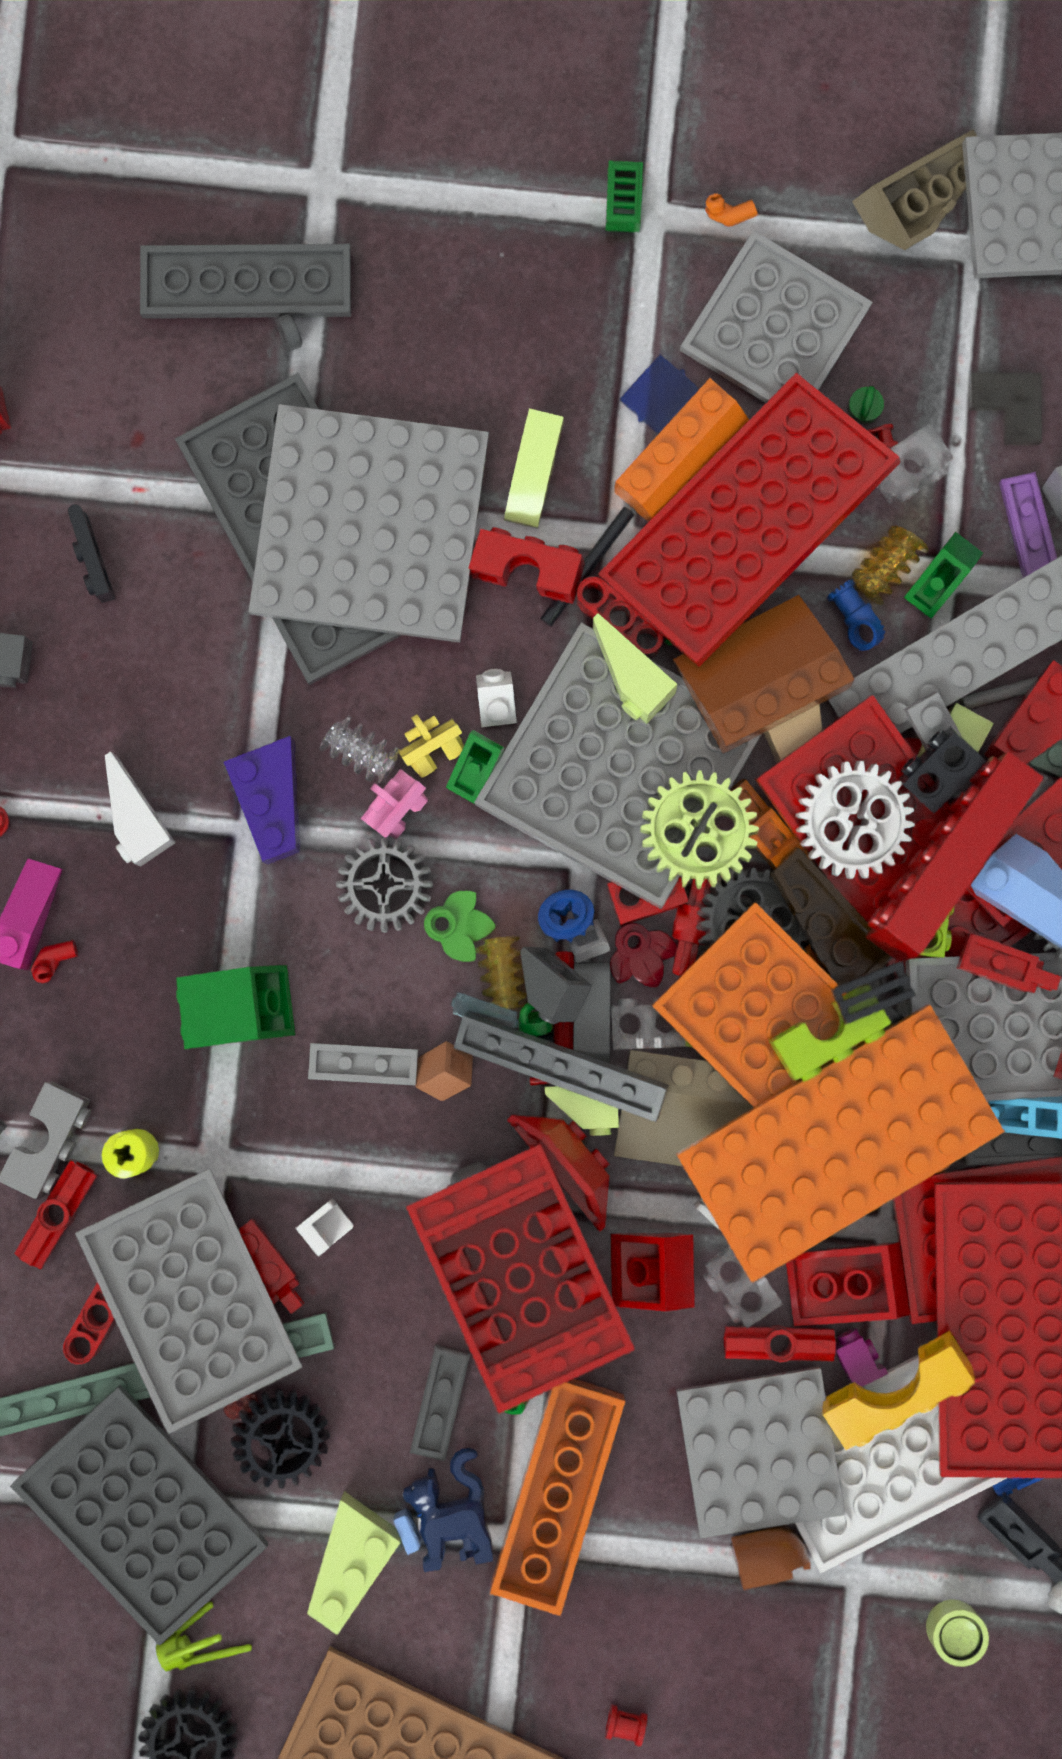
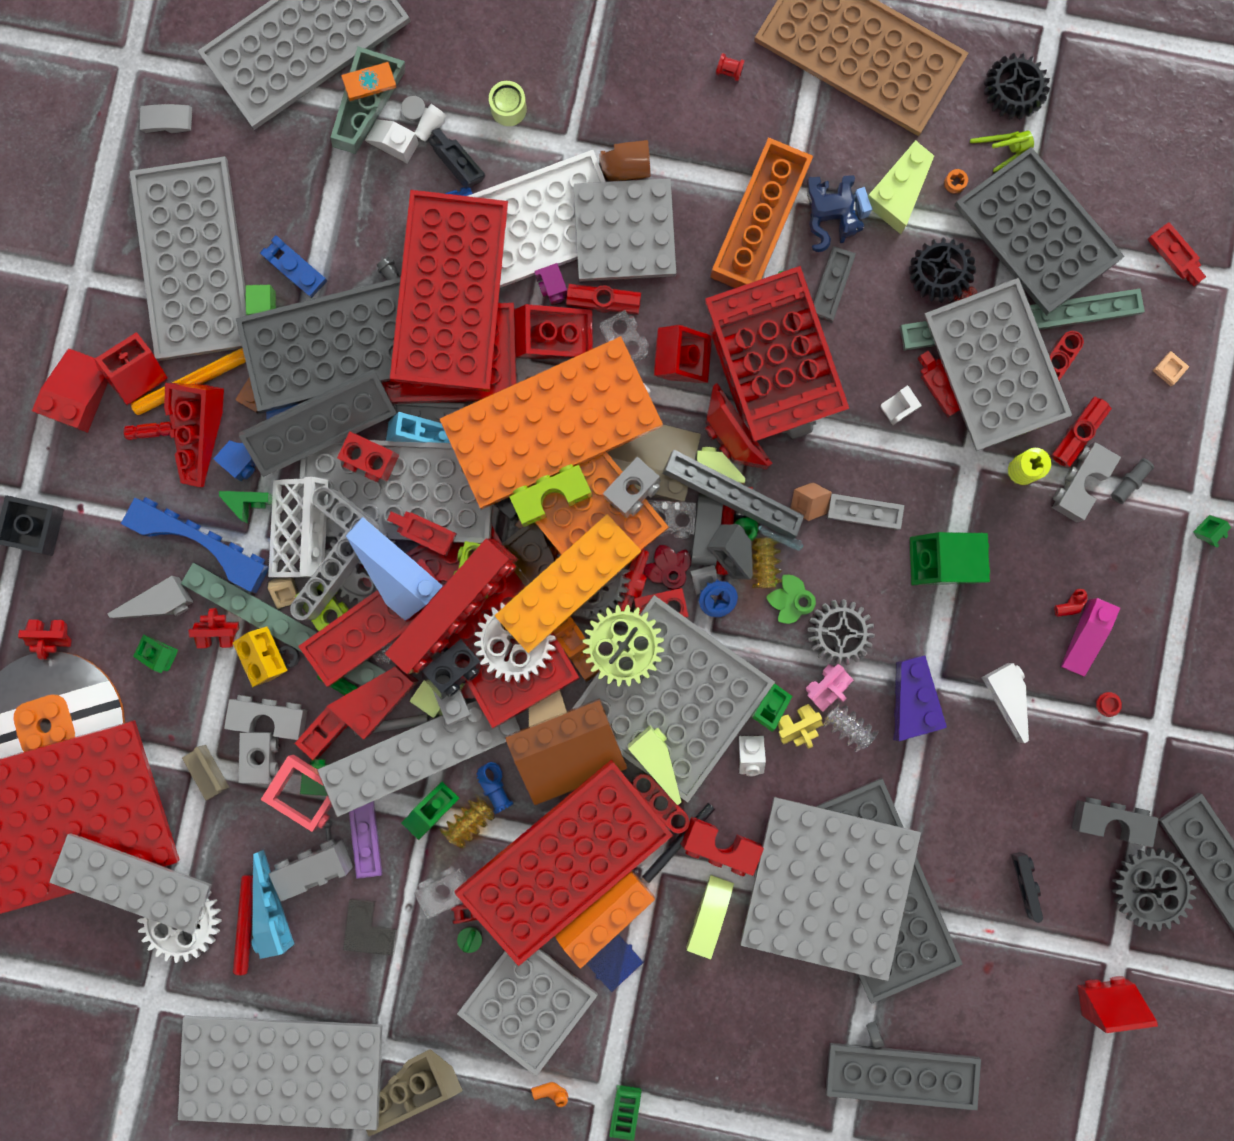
camera: 175 degrees left, 0 degrees up
(264, 1570) = (958, 188): none -> orange bush
(732, 1048) = (638, 474): none -> light grey brick
(790, 907) = (567, 583): none -> light orange plate
(861, 1414) = (557, 246): yellow arch -> none
(902, 980) = (540, 511): black tile -> none

